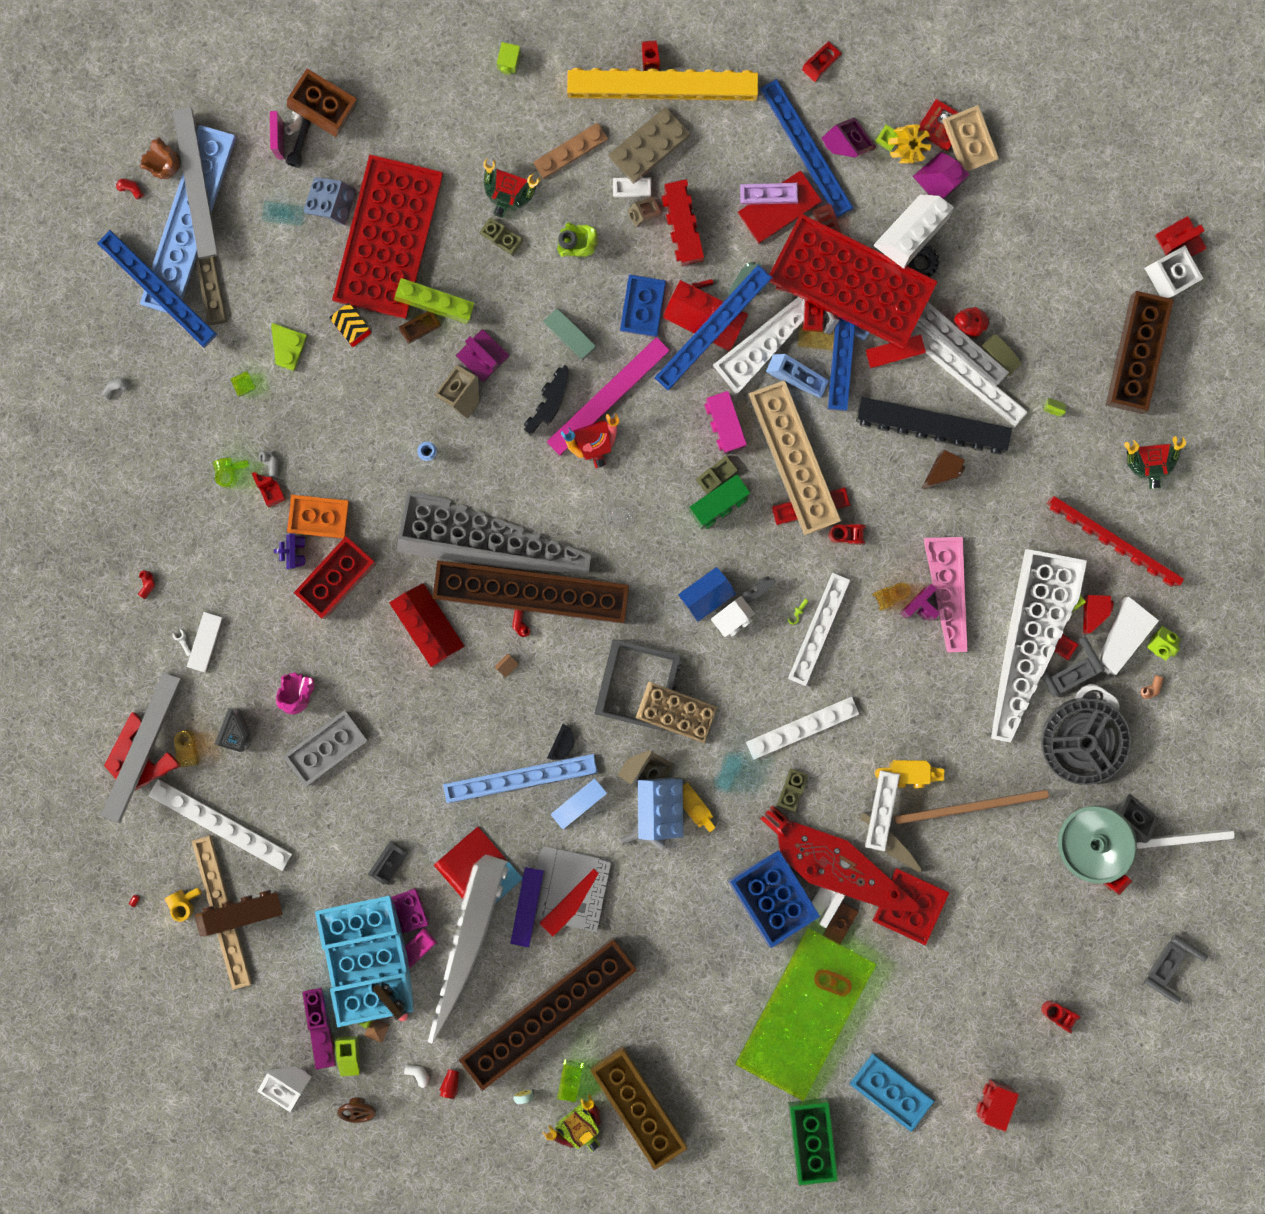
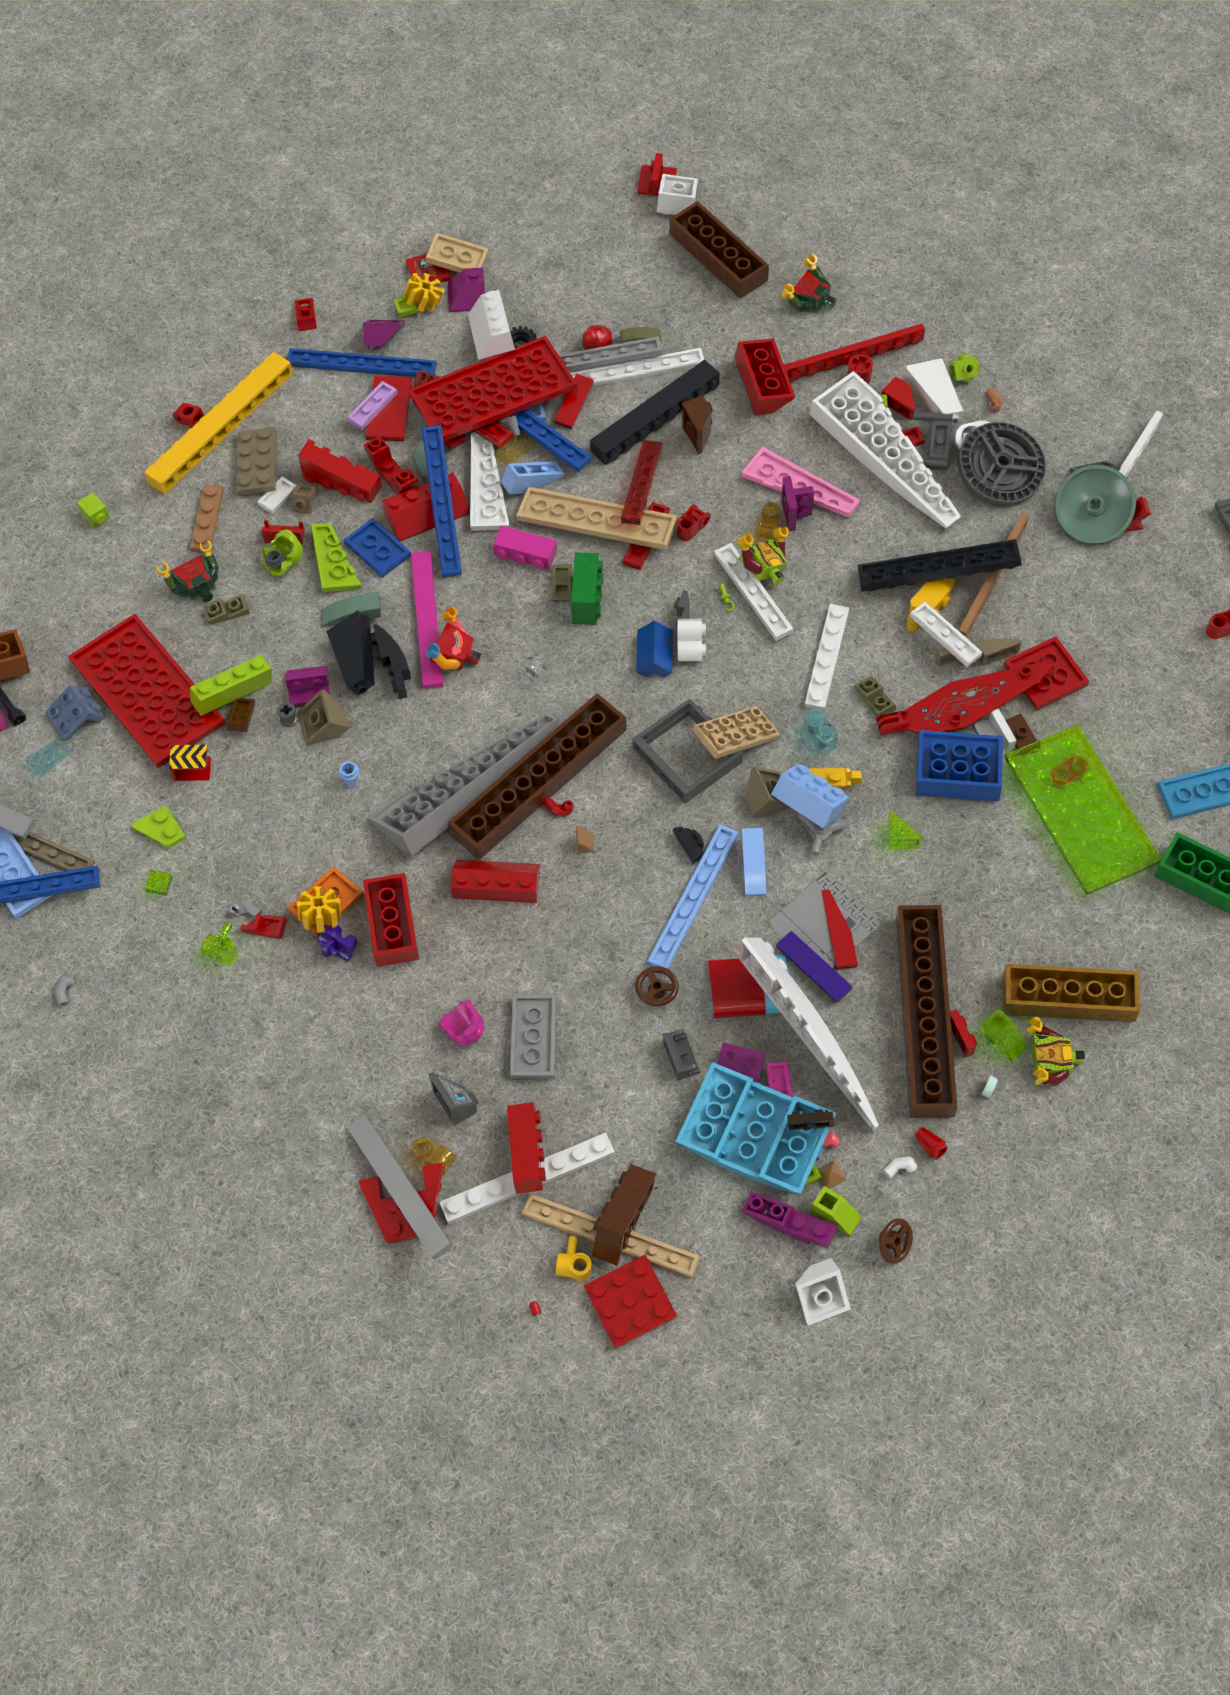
camera: 50 degrees left, 25 degrees down
(148, 583) = (256, 1084): red arm -> none
(182, 641) = (331, 1092): white hand -> none
(184, 962) = (630, 1301): none -> red plate
(204, 642) = (351, 1073): white tile -> none
(235, 810) = (525, 1149): none -> red brick
(306, 528) = (319, 909): none -> yellow gear
(432, 795) = (660, 993): none -> reddish brown piece
(445, 368) = (287, 714): none -> dark grey bush
(531, 369) = (353, 651): none -> black slope
(547, 1057) = (965, 1040): none -> red plate
(600, 222) = (270, 531): none -> red hinge
(601, 284) = (332, 561): none -> lime wing
(682, 893) = (901, 834): none -> clear neon green slope
(719, 258) = (387, 467): none -> red slope
(852, 468) = (641, 482): none -> clear red plate
(854, 619) = (765, 558): none -> torso
(944, 761) = (939, 565): none -> black plate
(1033, 487) = (763, 375): none -> red slope
(1055, 407) = (714, 329): lime slope -> none
(1099, 560) = (862, 366): none -> red piece

